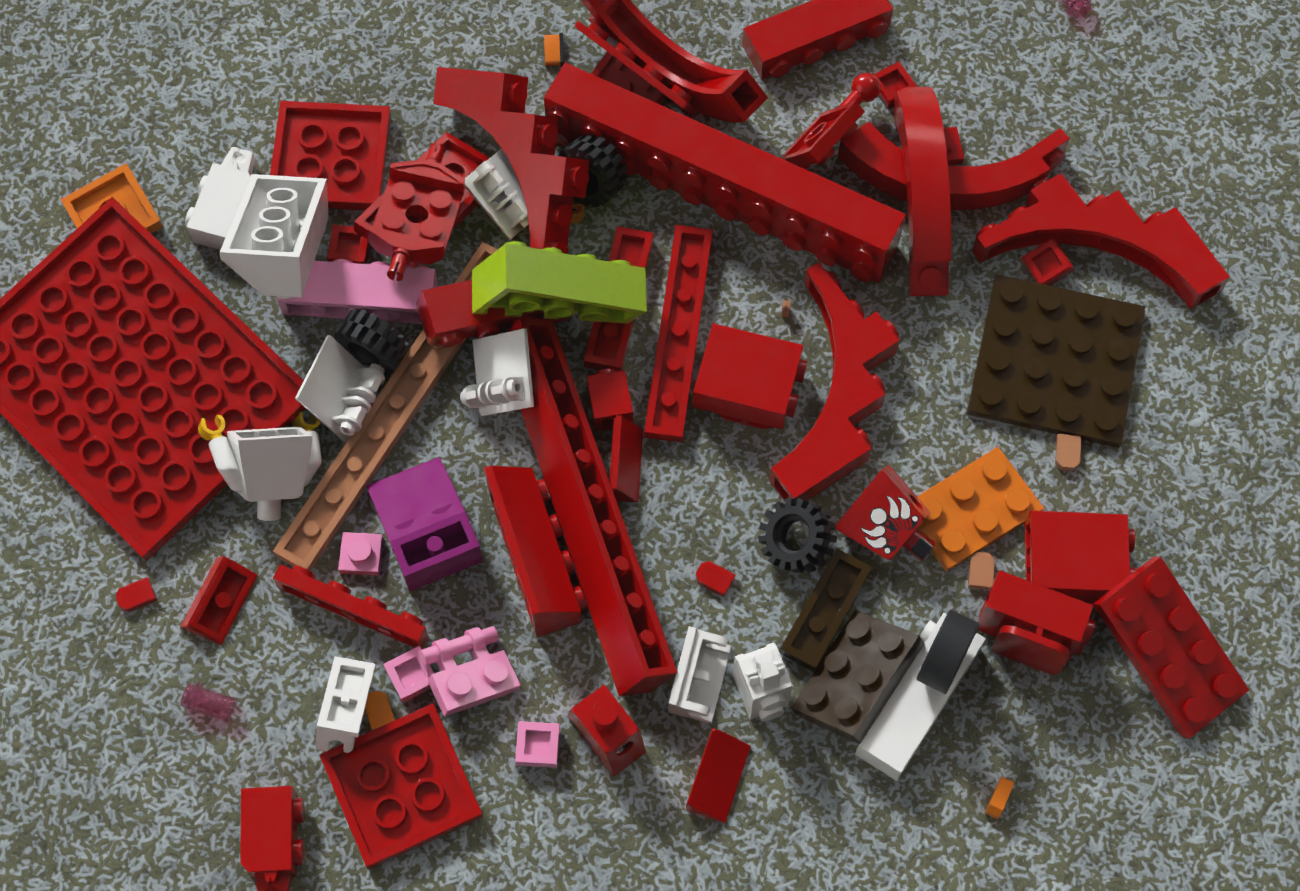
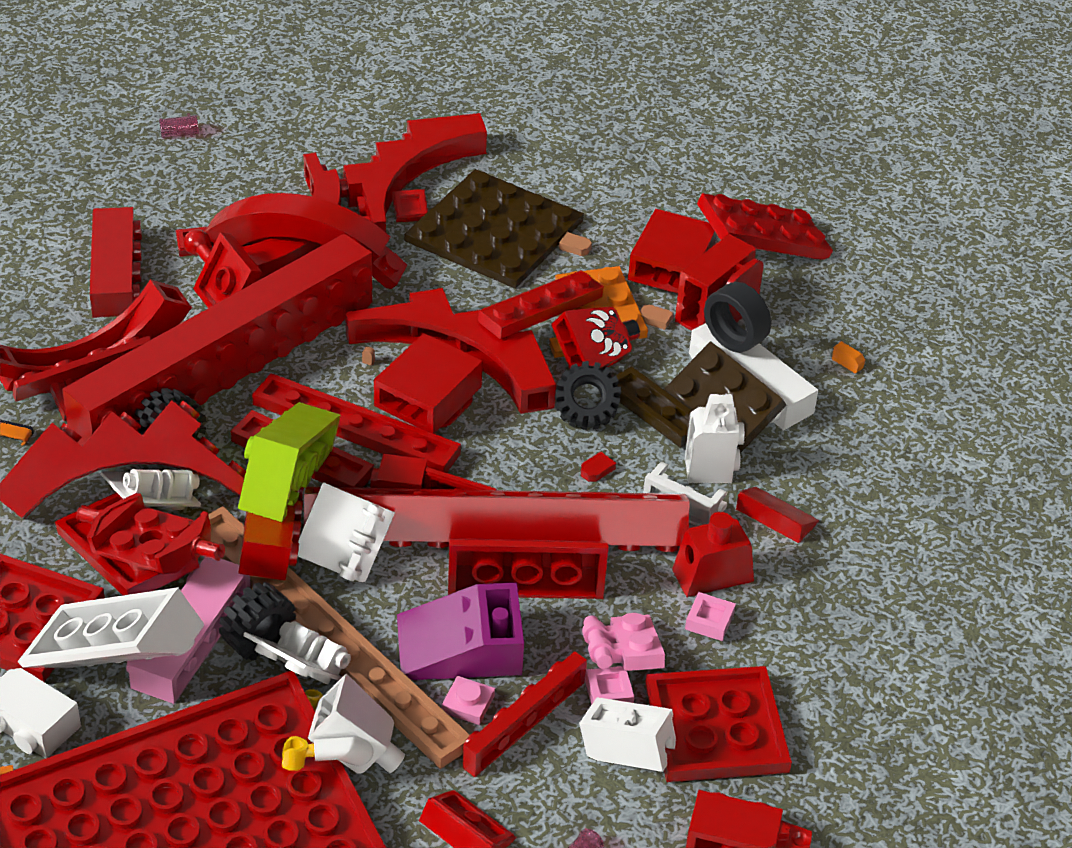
camera: 75 degrees left, 25 degrees down
(918, 445) = (540, 304): none -> red plate

